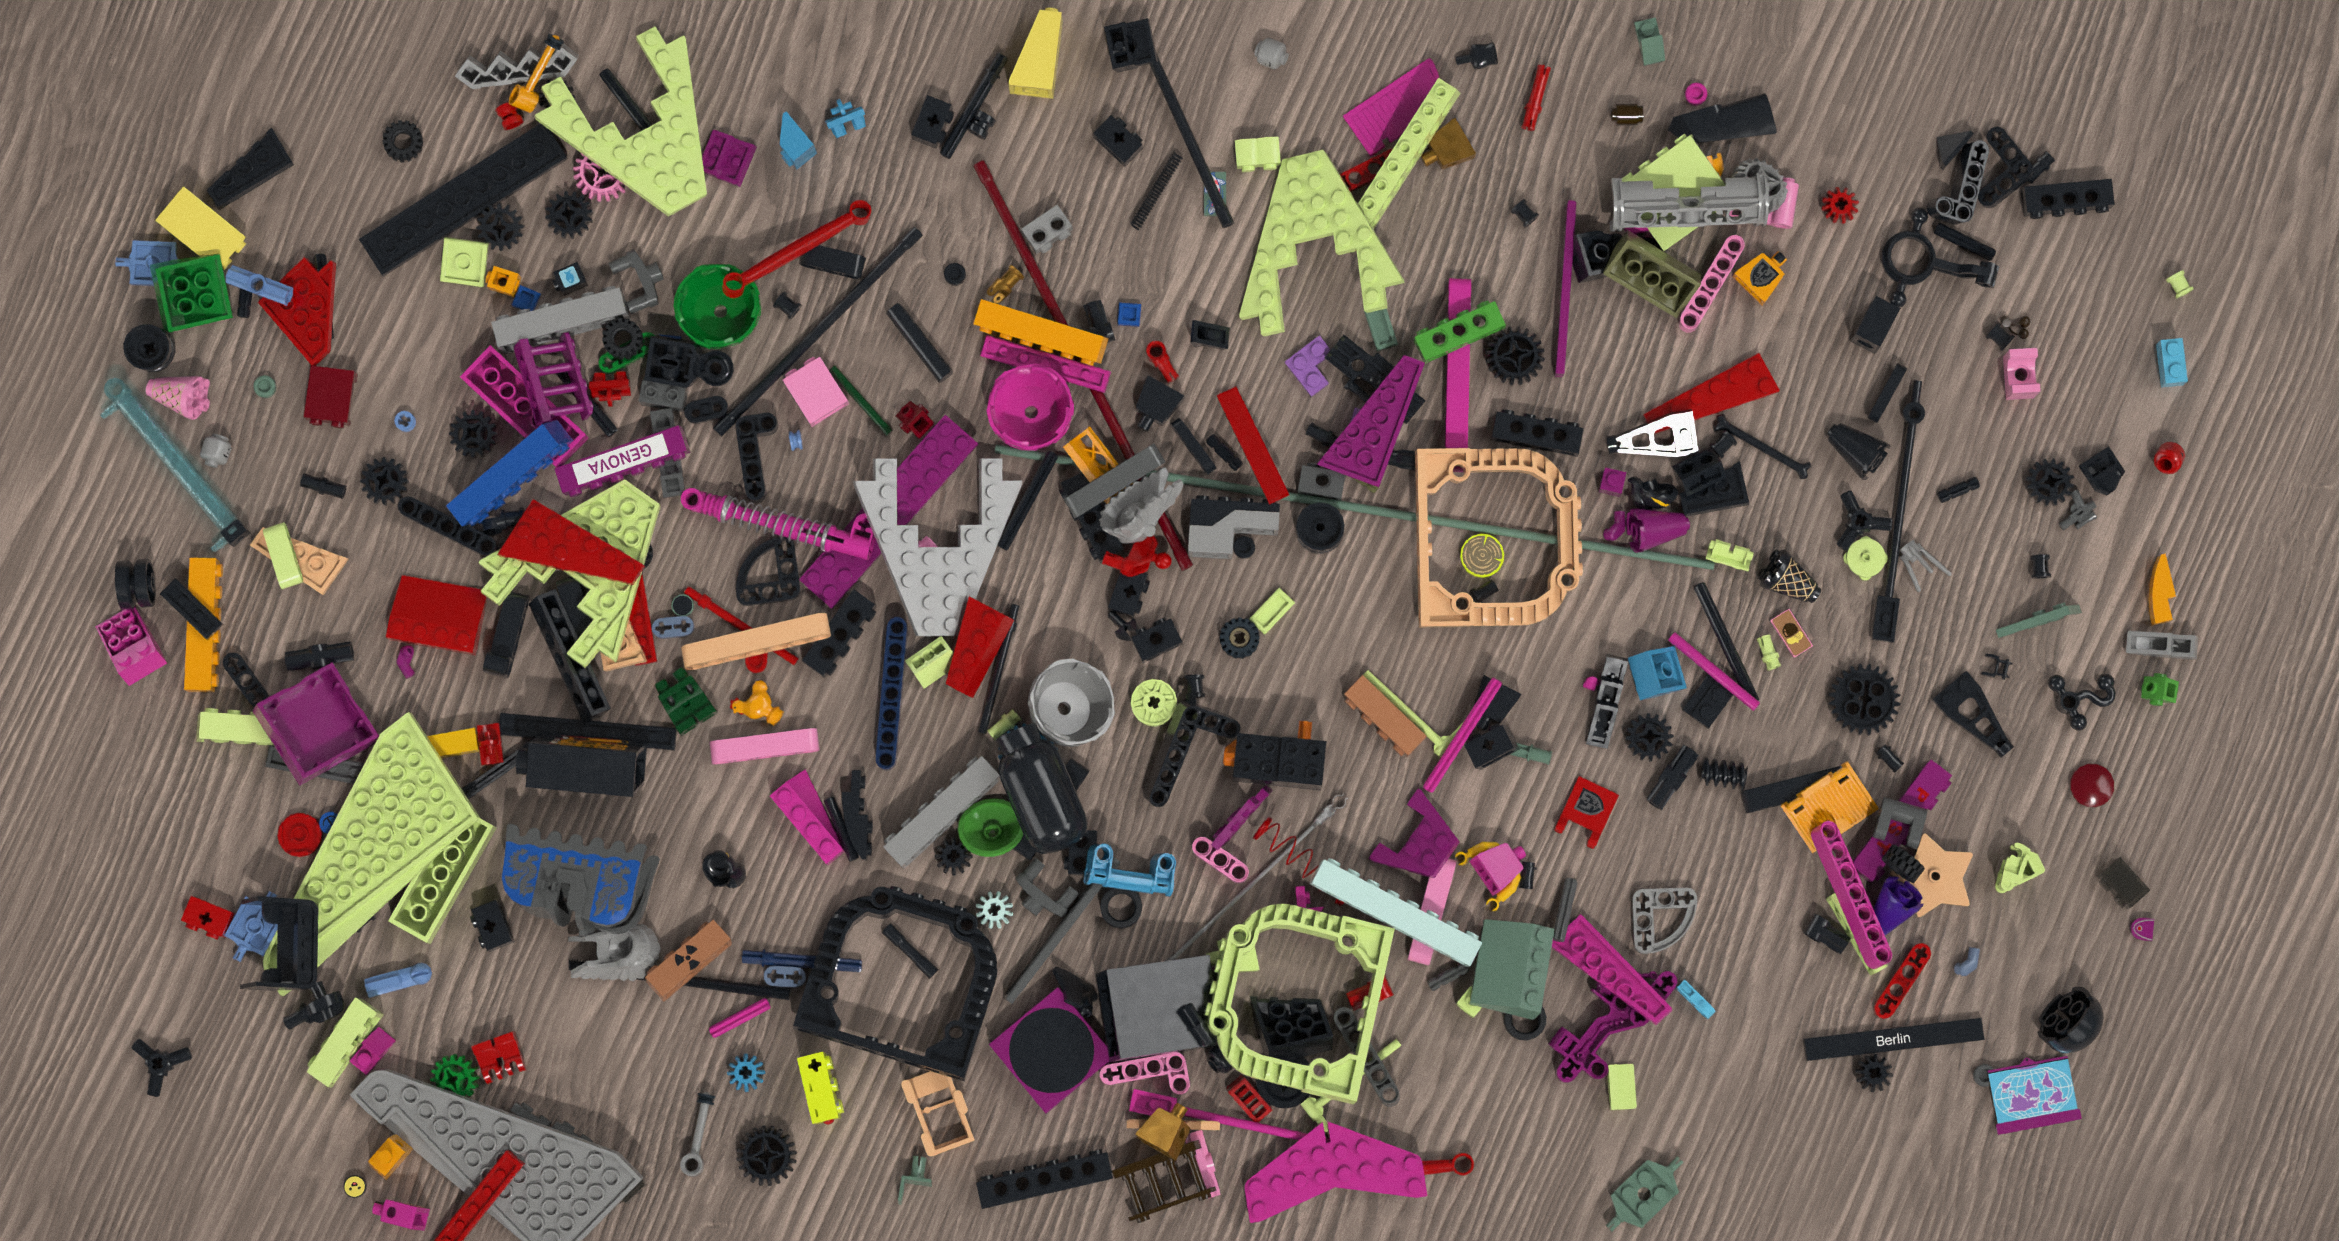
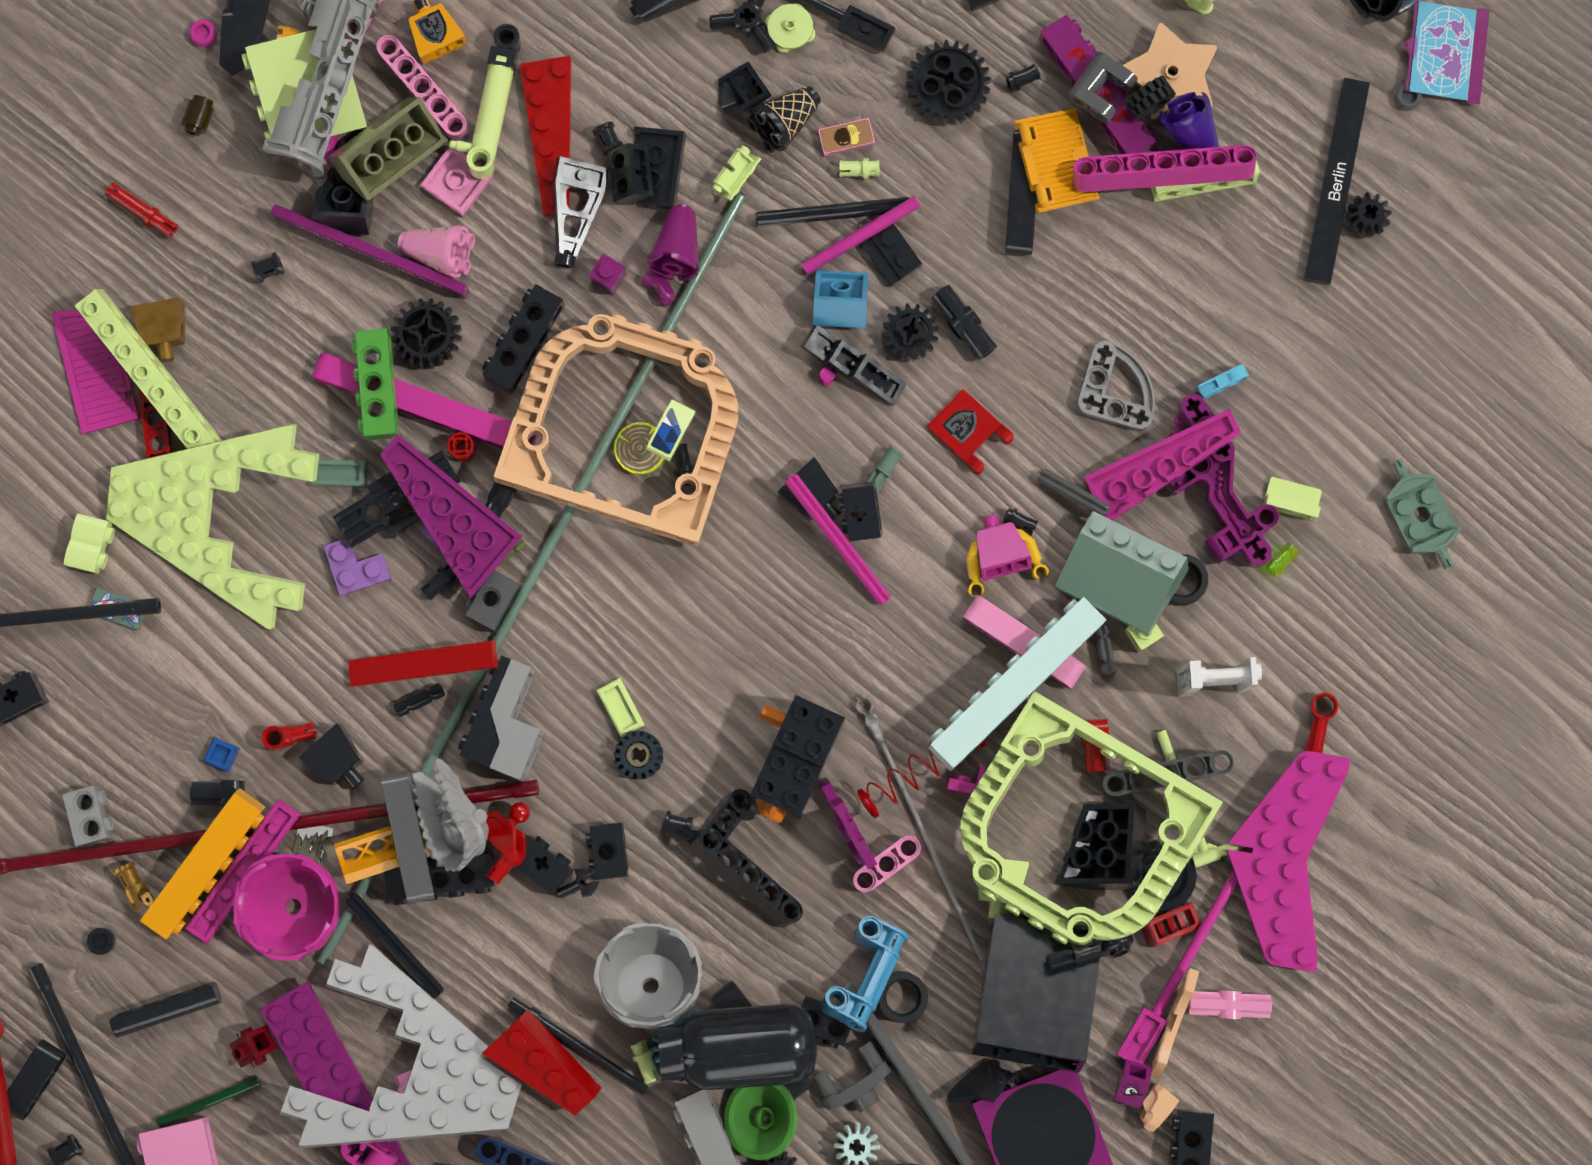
camera: 70 degrees left, 0 degrees up
(931, 662) = (543, 1123): yellowish green brick -> none
(1085, 410) = (313, 843): none -> sticker
(1103, 1133) = (1157, 1107): none -> light nougat rock
(1115, 1108) = (1133, 1083): none -> magenta brick
(1141, 699) = (688, 865): yellowish green wheel -> none
(1143, 1073) = (1103, 1035): bright pink beam -> none
(1148, 1166) = (1213, 1042): dark brown fence -> none
(1153, 190) = (69, 644): black piece -> none
(1165, 1131) = (1182, 1034): pearl gold torso -> none
(1193, 446) = (399, 732): black beam -> none
(1209, 335) = (278, 670): black slope -> none
(1244, 547) = (536, 714): black tile -> none
(1320, 541) = (532, 610): black wheel -> none
(1384, 716) = (785, 620): nougat brick -> none
(1427, 846) = (950, 621): magenta wing -> none
(1432, 419) = (461, 451): none -> red wheel
(1441, 743) = (838, 568): yellowish green bar -> none
(1447, 1050) = (1193, 677): none -> white fence
(1479, 56) = (71, 256): black piece -> none
(1501, 574) = (670, 430): none -> slope
(1568, 1093) = (1280, 561): none -> clear neon green pin
(1586, 342) = (439, 248): none -> bright pink cone
(1647, 336) = (453, 183): none -> bright pink tile
(1649, 41) = (124, 63): sand green slope -> none
(1651, 494) = (636, 235): black hair -> none
(1721, 343) = (501, 69): none -> yellowish green piece
(1723, 424) = (665, 63): black piece -> none
(1723, 773) = (978, 263): black piece -> none
(1799, 536) = (741, 90): none -> black slope
(1822, 931) = (1192, 216): black piece -> none
(1904, 982) = (1270, 152): red beam -> none
(1970, 964) = (1281, 70): sand blue arm -> none

